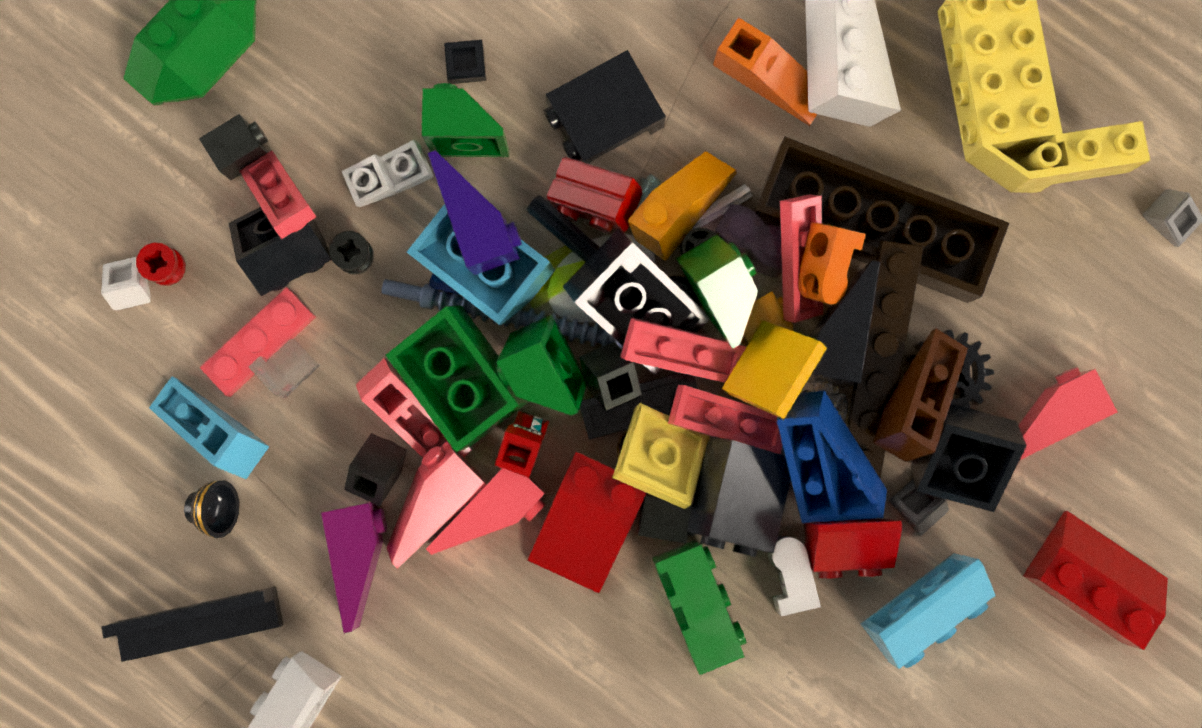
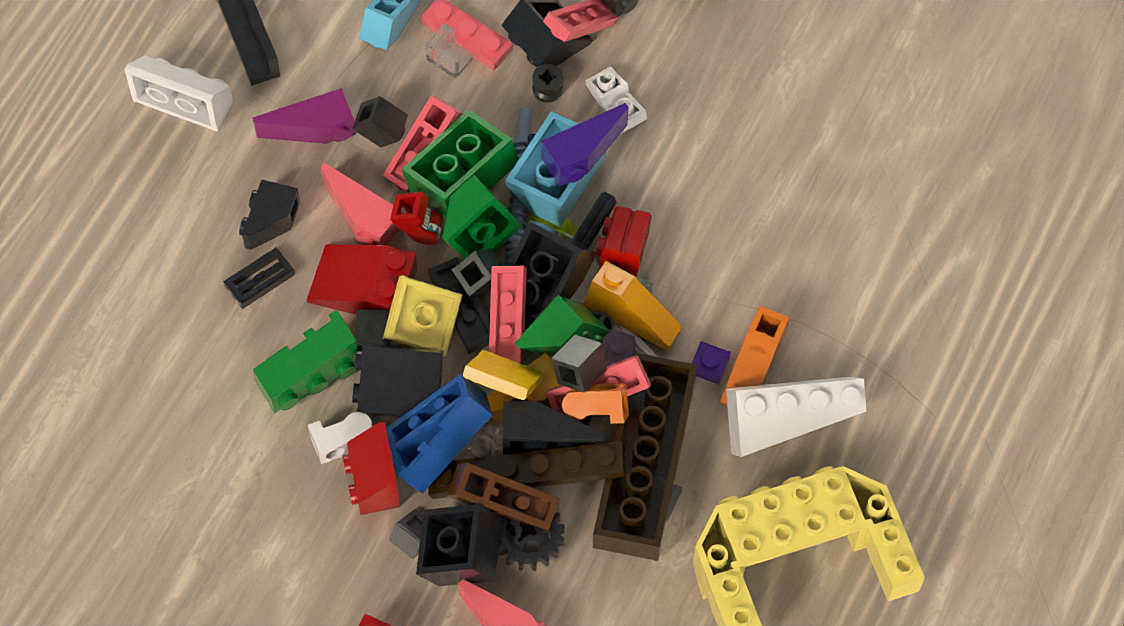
camera: 80 degrees right, 20 degrees down
(213, 508) = (333, 22): black piece -> none
(437, 493) = (369, 167): slope -> none
(459, 125) = (660, 134): green slope -> none
(465, 61) = (719, 140): black tile -> none
(477, 623) = (271, 213): none -> black slope
(544, 617) = (265, 287): none -> black tile
(603, 109) = (699, 241): black panel -> none
(724, 419) = (460, 346): coral plate -> none
(756, 128) = (711, 362): none -> dark purple plate
(788, 271) = (579, 363): none -> pearl dark grey brick
(930, 610) = (327, 538): medium azure slope -> none

